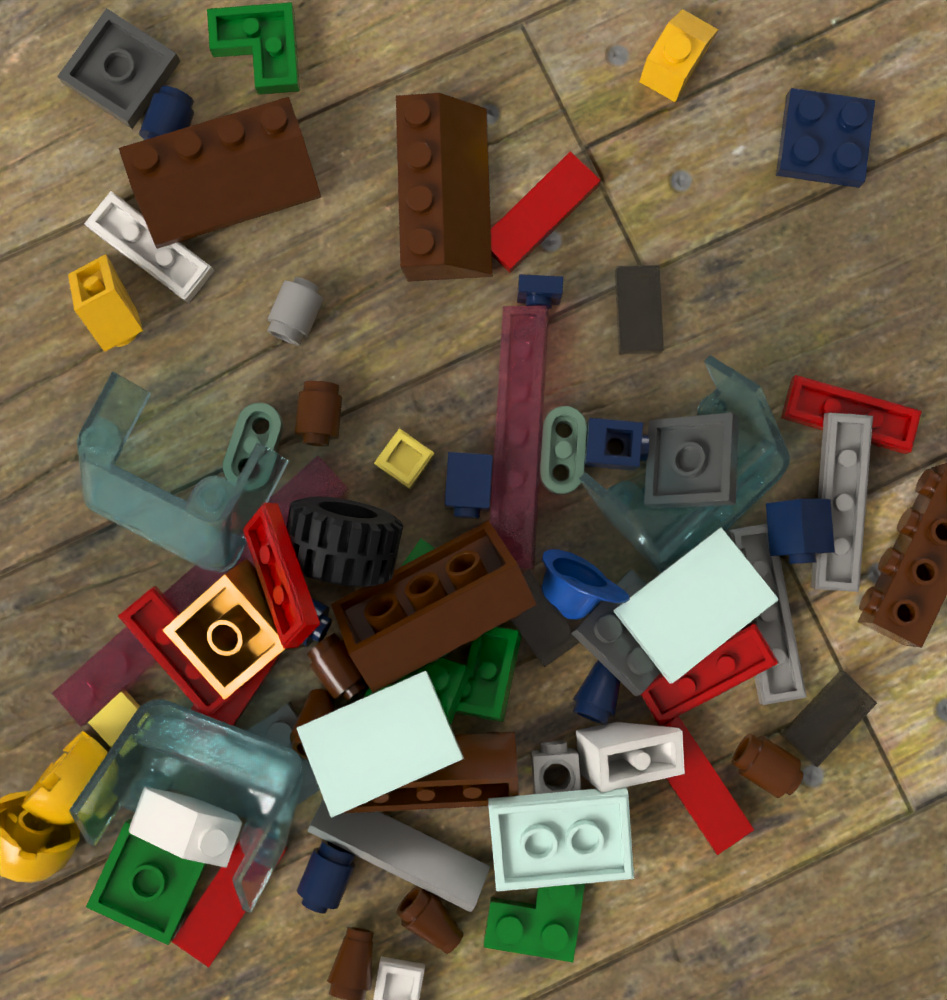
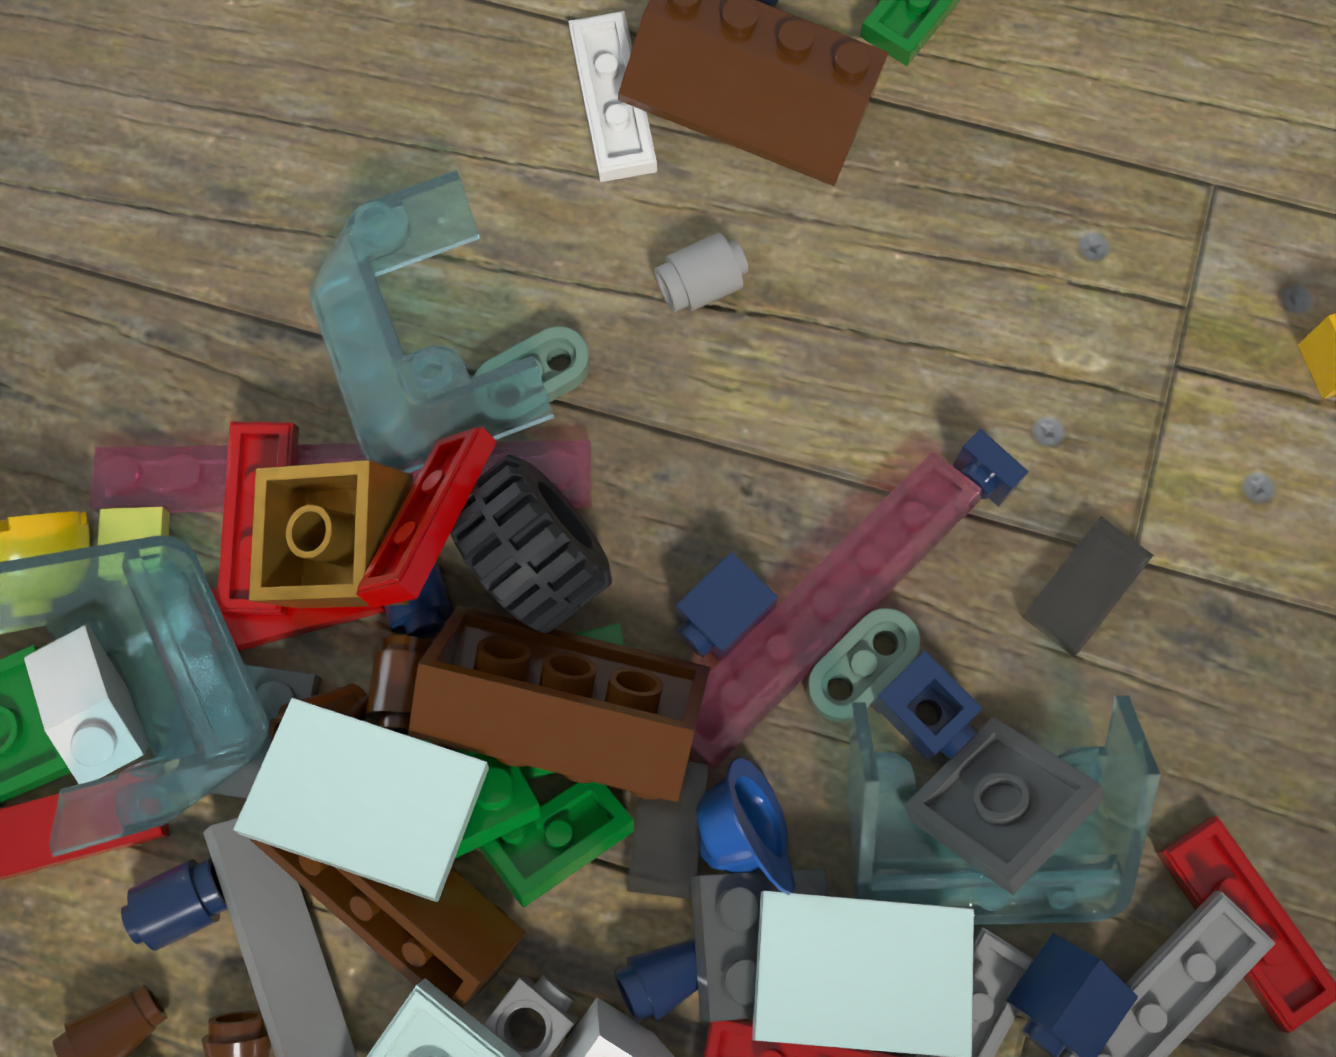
camera: 45 degrees right, 10 degrees down
(104, 304) = (514, 111): yellow slope -> none
(318, 413) = (630, 397): reddish brown brick -> none
(404, 458) = (679, 525): light yellow tile -> none
(443, 188) = (973, 277): reddish brown slope -> none
(541, 211) = (1063, 390): red tile -> none

